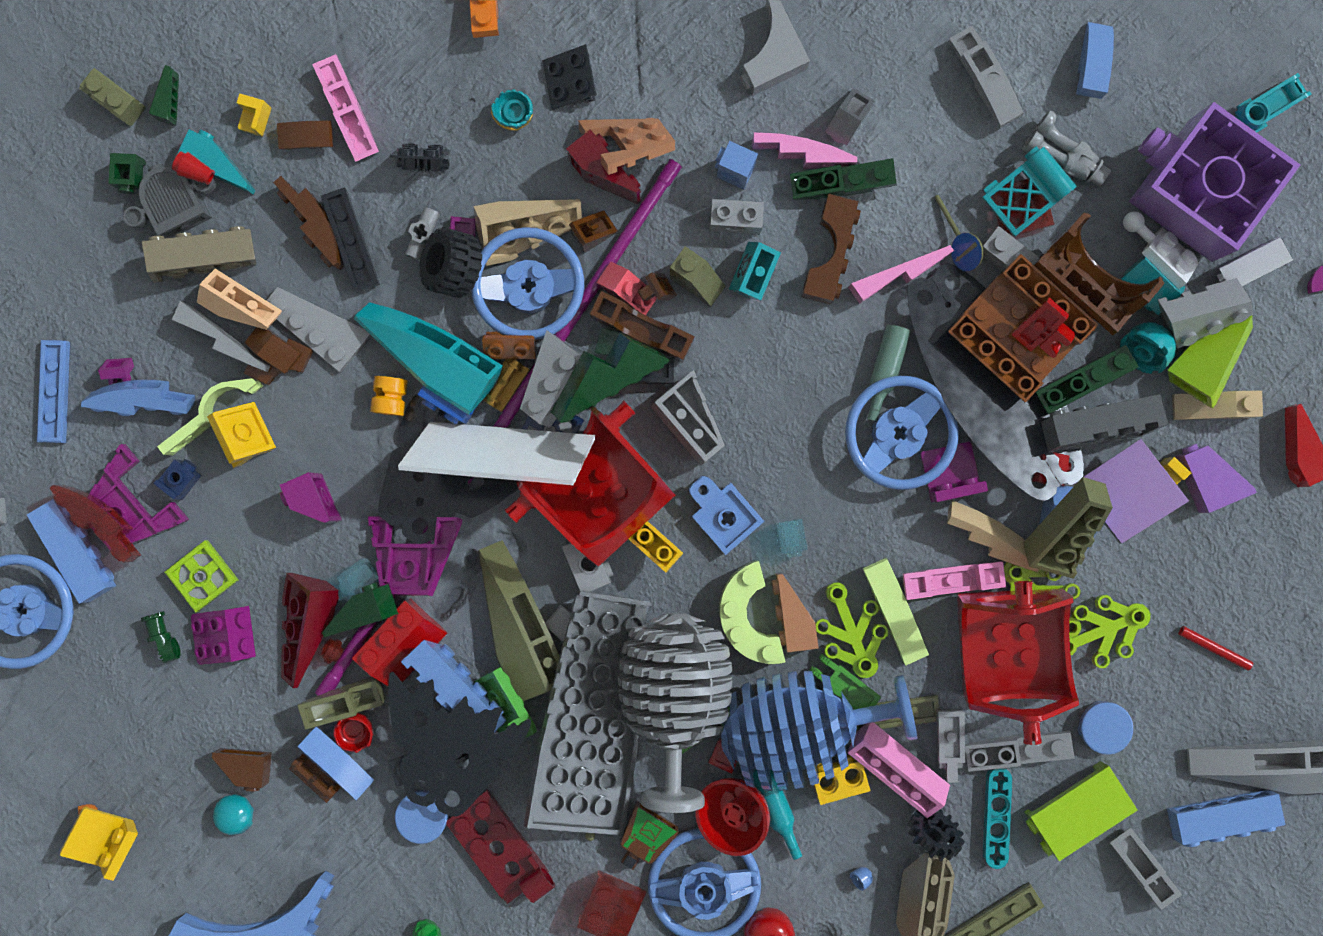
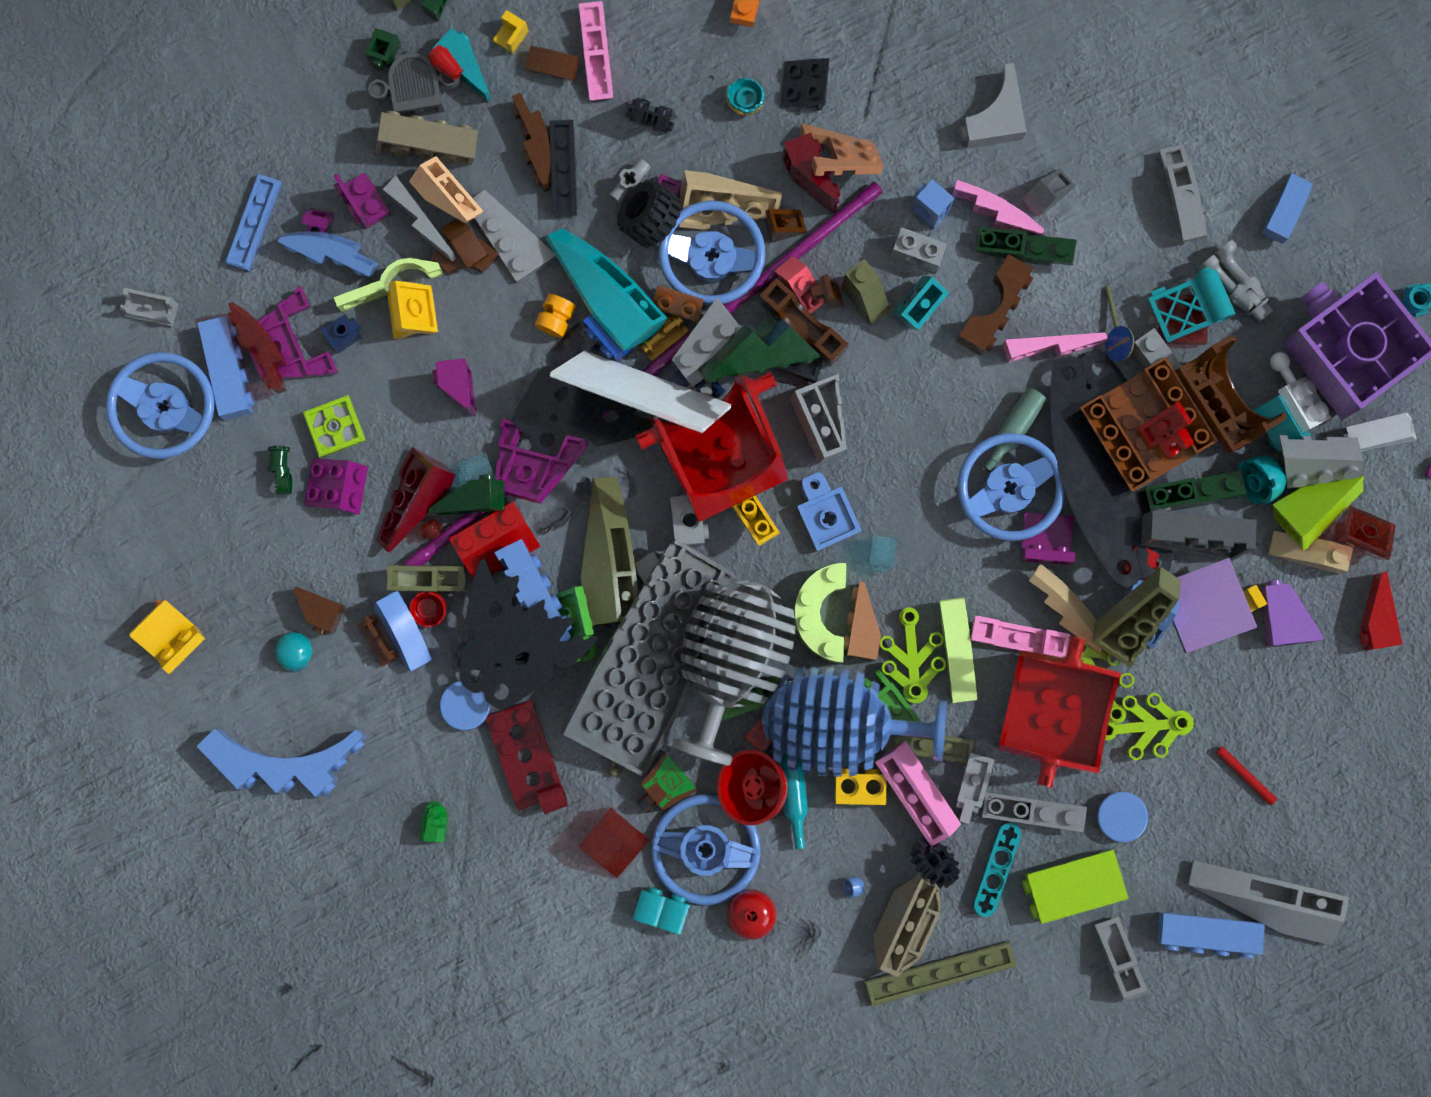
camera: 15 degrees right, 5 degrees down
(154, 335) = (363, 200): none -> magenta bracket
(1269, 371) = (1365, 533): none -> clear red slope

